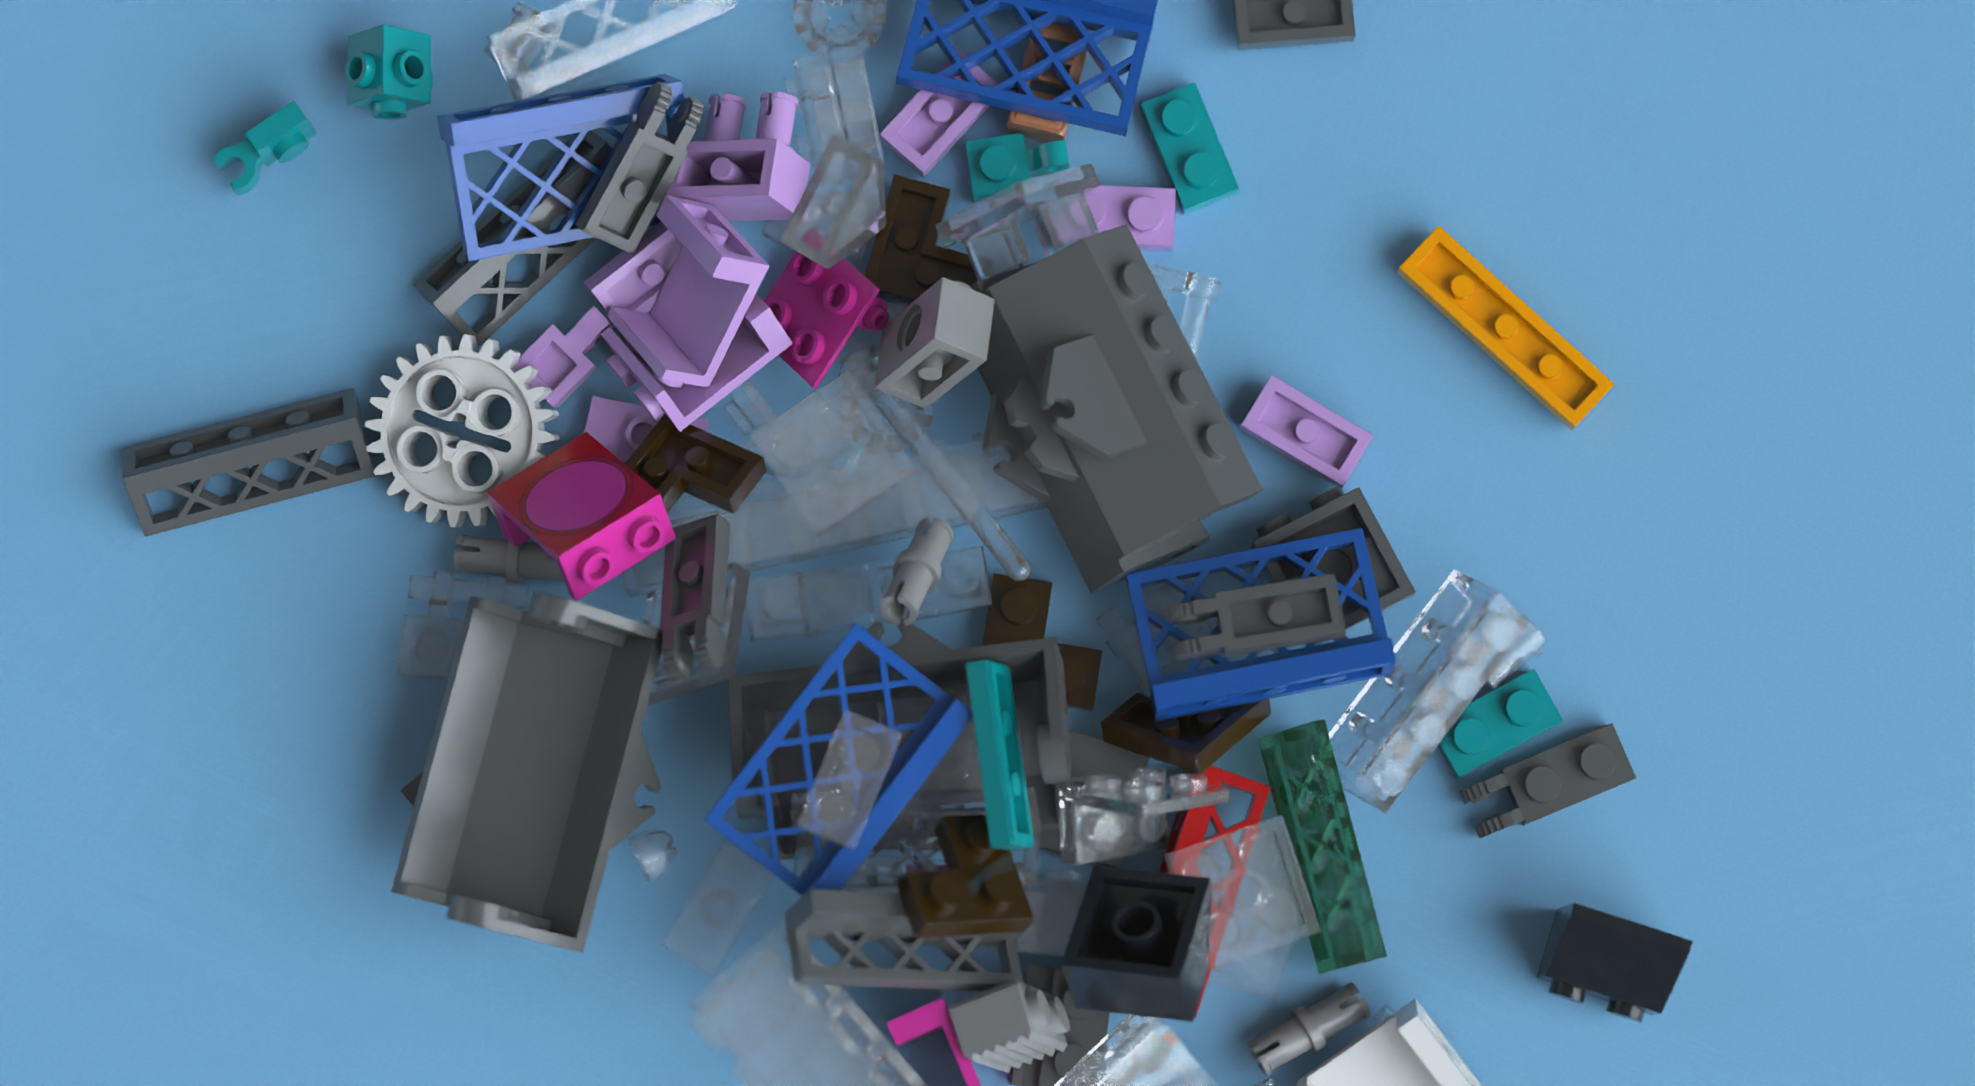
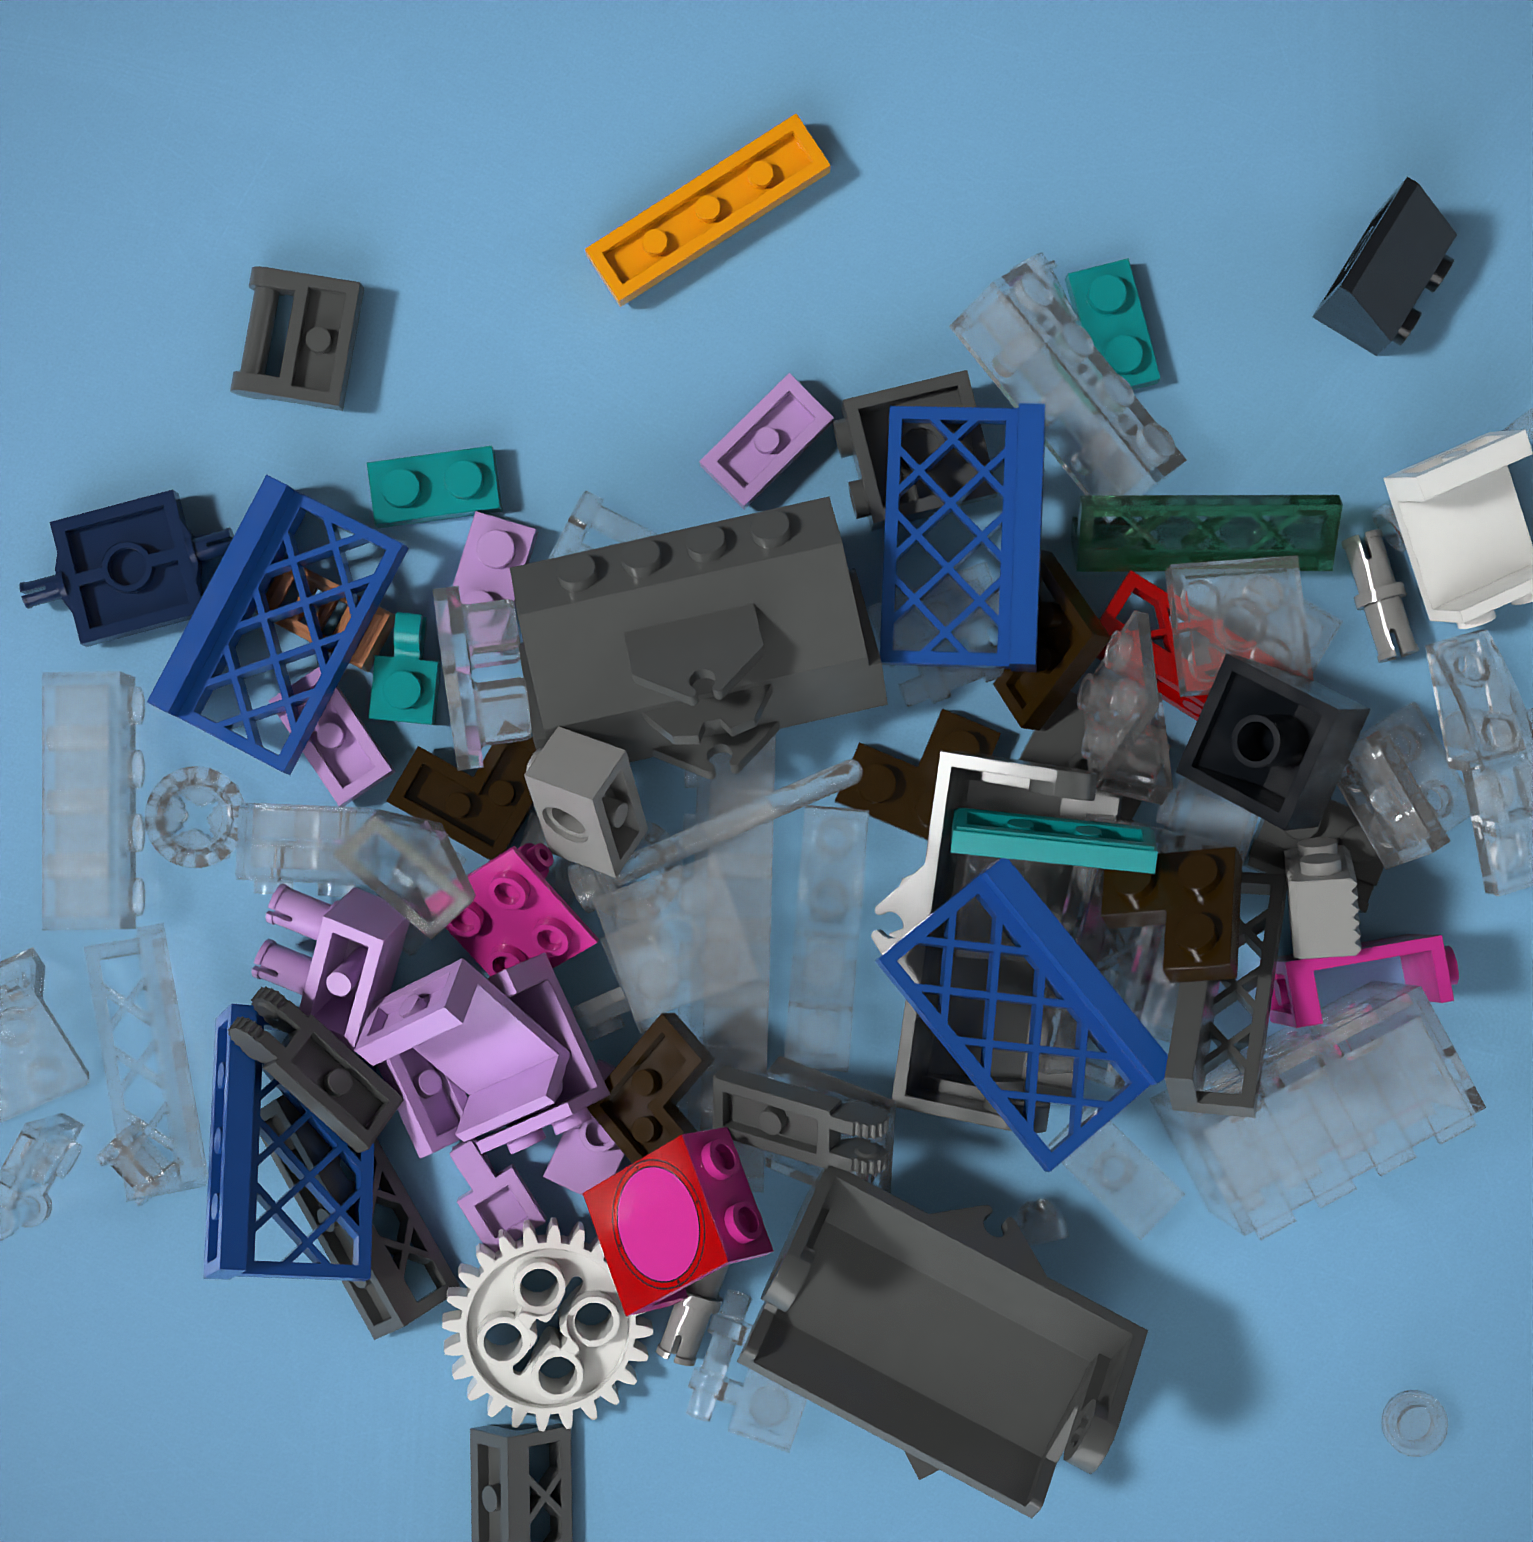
camera: 75 degrees left, 5 degrees up
(275, 138) = (178, 1455): teal plate -> none
(389, 71) = (136, 1314): teal brick -> none
(849, 780) = (1048, 1007): clear plate -> none
(916, 571) = (826, 880): light grey pin -> none
(1262, 618) = (965, 528): dark grey hinge -> none
(1555, 779) = (1184, 284): dark grey hinge -> none

